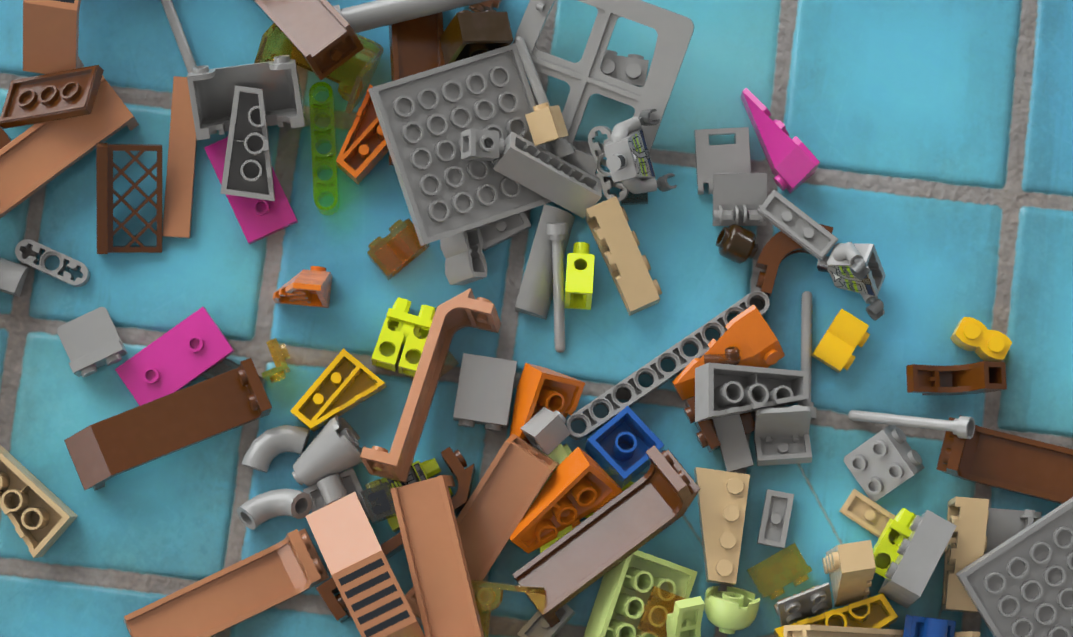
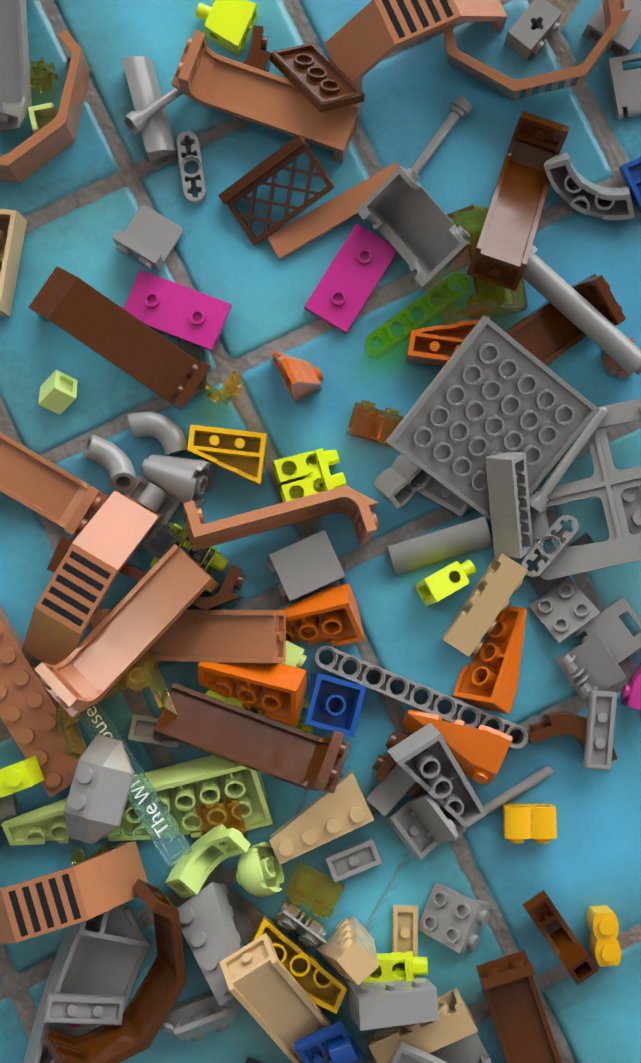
camera: 55 degrees right, 5 degrees up
(178, 515) = (58, 392): none -> yellowish green panel
(248, 150) = (376, 254): light grey wedge -> none
(473, 145) = (492, 430): light grey brick -> none
(475, 34) = (585, 372): dark brown brick -> none
(546, 124) = (550, 476): tan brick -> none
(546, 430) = (305, 635): light grey brick -> none
(557, 234) = (467, 542): light grey piece -> none
(630, 158) = (567, 560): light grey torso -> none
(680, 200) = (564, 610): none -> light grey hinge
(687, 285) = (494, 671): none -> orange wedge
(730, 357) = (456, 746): reddish brown arm -> none
(736, 243) = (553, 688): dark brown head -> none
(858, 270) = (595, 801): light grey torso -> none
(962, 426) = (522, 973): light grey piece -> none

